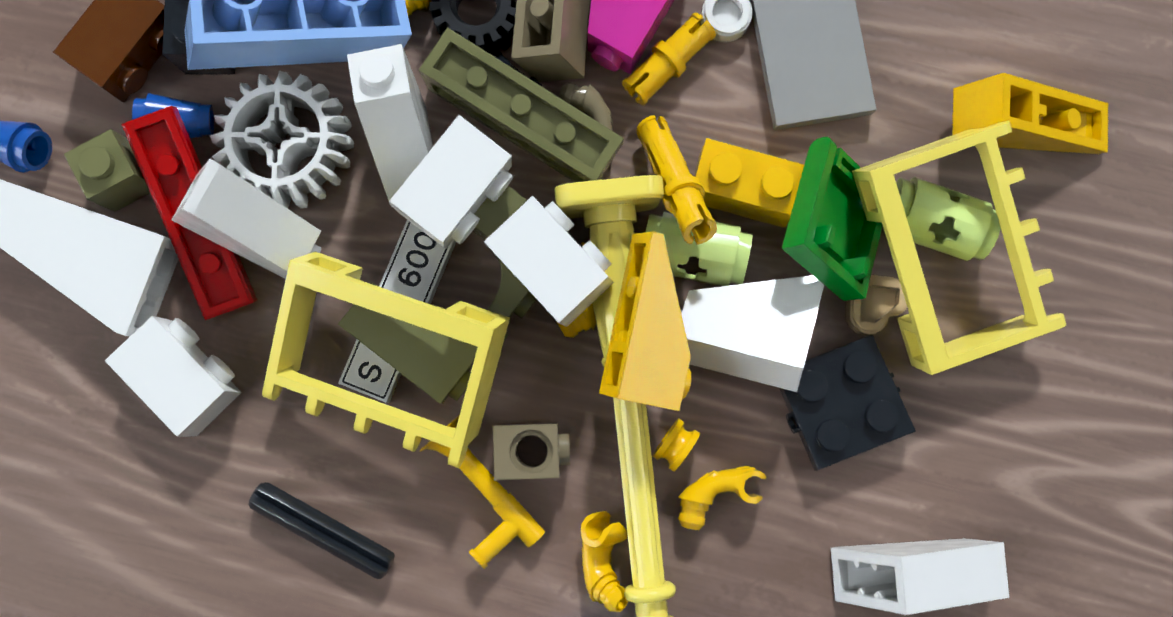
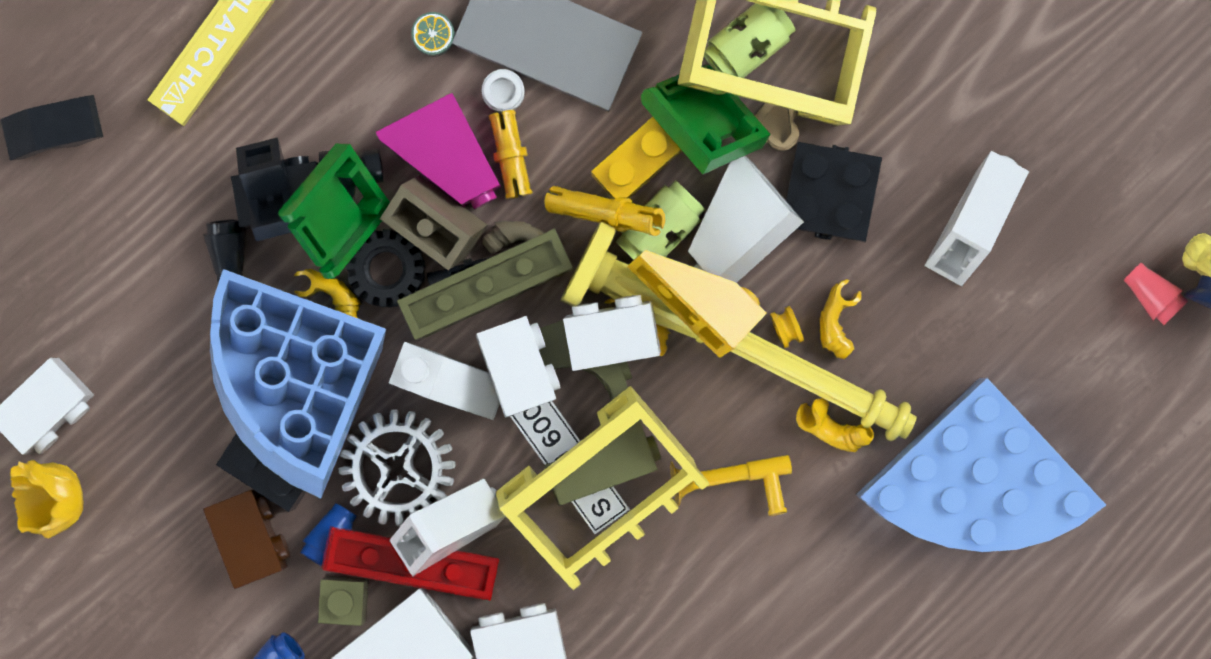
camera: 55 degrees left, 5 degrees up
(321, 530) = (689, 608): black axle -> none
(506, 456) = (727, 450): dark tan brick -> none

